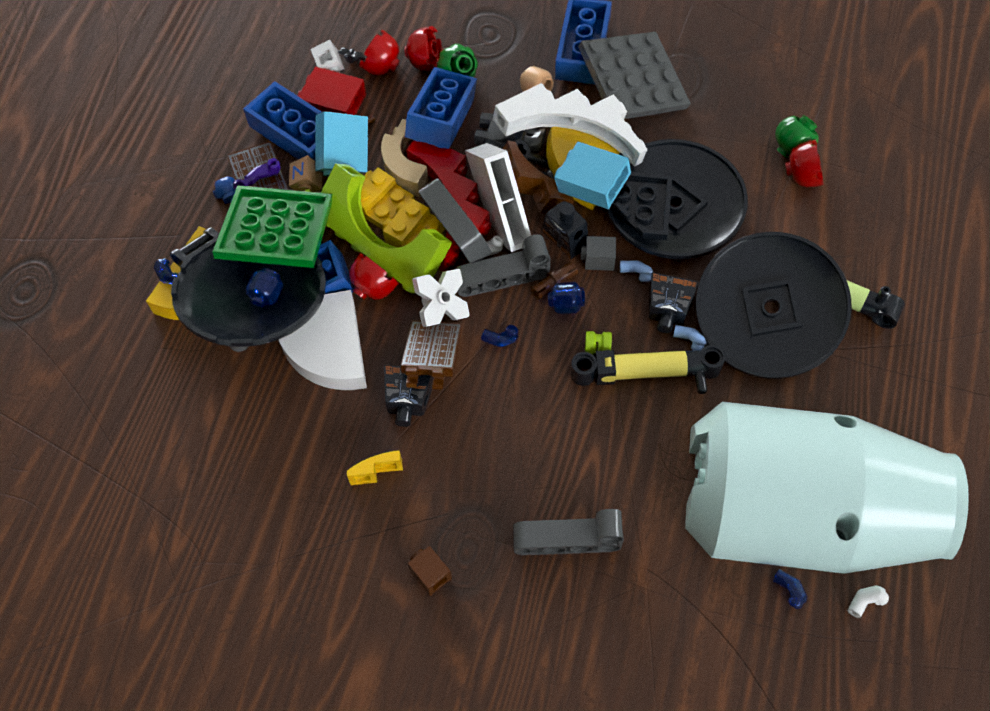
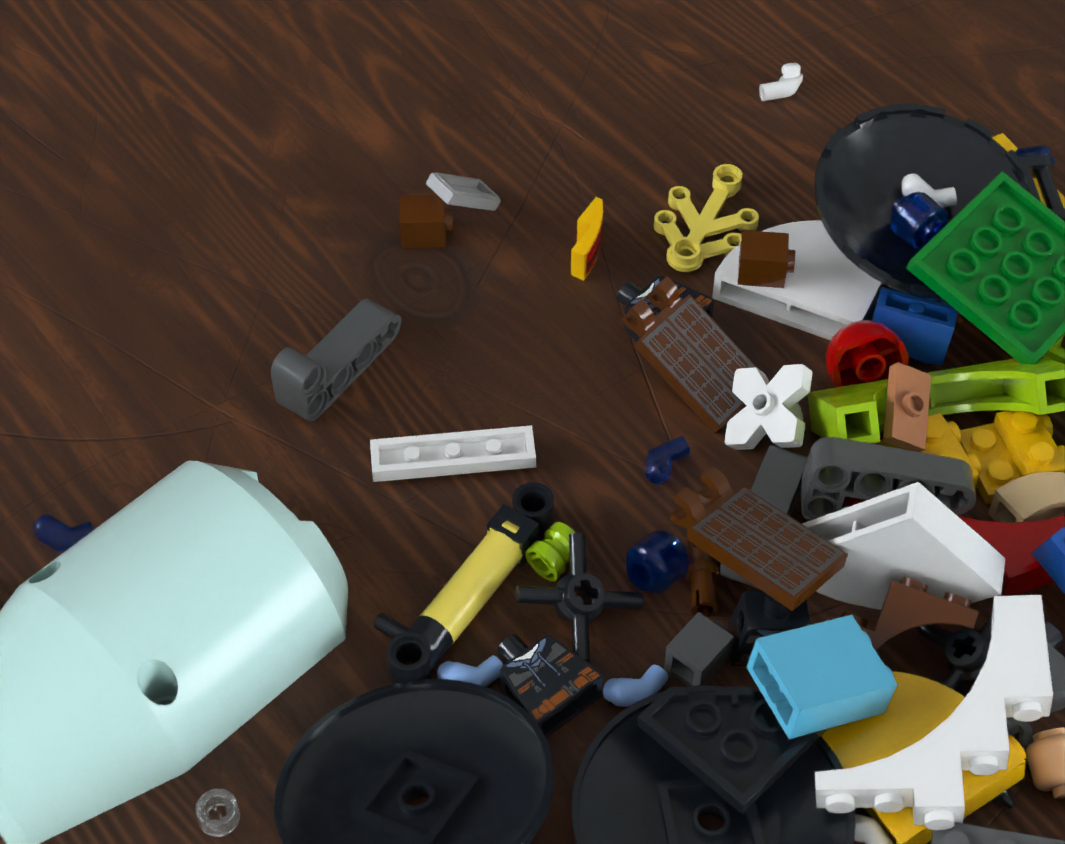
camera: 125 degrees right, 10 degrees down
(158, 449) = (785, 86): none -> white arm
(239, 294) = (914, 183): none -> white arm
(315, 421) = (688, 252): none -> light yellow plant
(344, 348) = (764, 259): none -> reddish brown brick
(392, 558) = (463, 191): none -> light grey tile
(398, 234) = (907, 407): none -> nougat plate
(546, 231) = (757, 540): none -> reddish brown tile
(579, 432) = (452, 453): none -> white plate
(616, 314) = (587, 588): none -> black bar
(850, 381) = (212, 799): none -> clear bush

